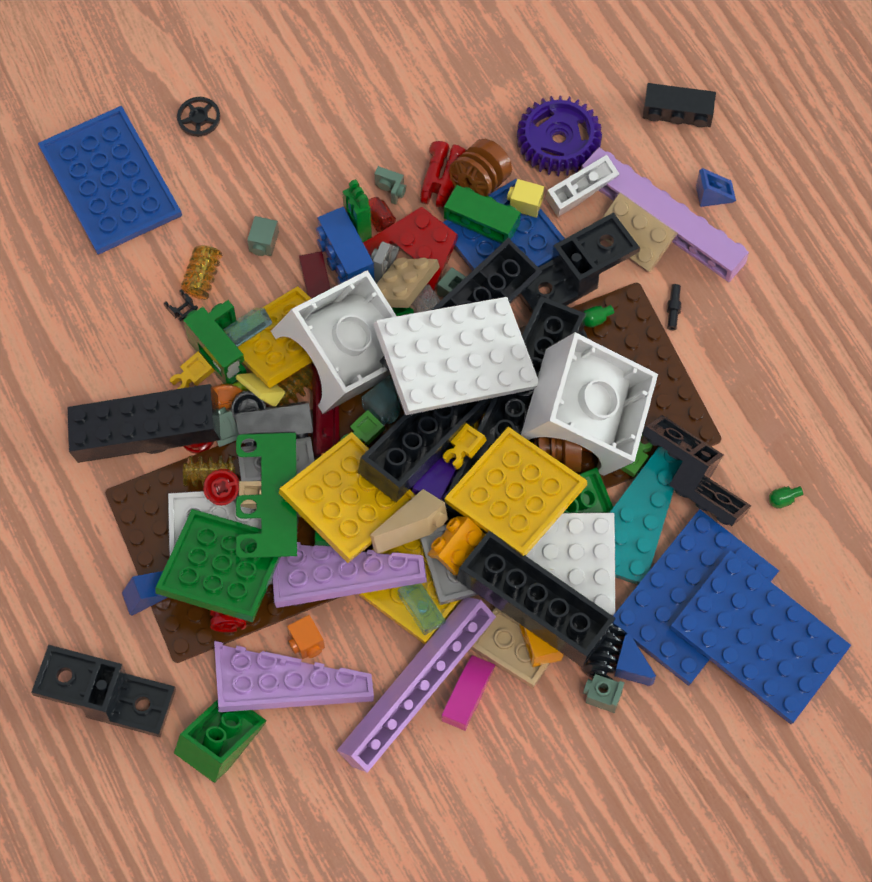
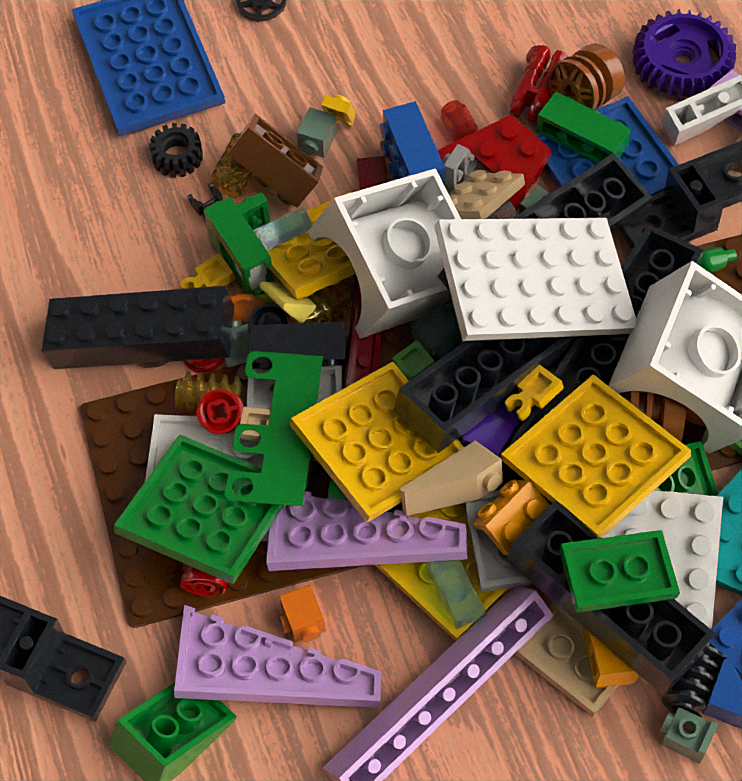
camera: 10 degrees right, 5 degrees down
(141, 592) = (98, 534): blue slope -> none
(147, 251) = (176, 137): none -> black tyre
(234, 268) = (275, 161): none -> reddish brown slope
(279, 214) = (340, 107): none -> yellow plate
(358, 209) = (433, 104): green hinge -> none
(390, 180) = (476, 86): sand green bracket -> none
(467, 693) = (505, 712): dark pink slope -> none
(526, 197) = (639, 115): light yellow brick -> none
(540, 579) = (619, 571): none -> green plate

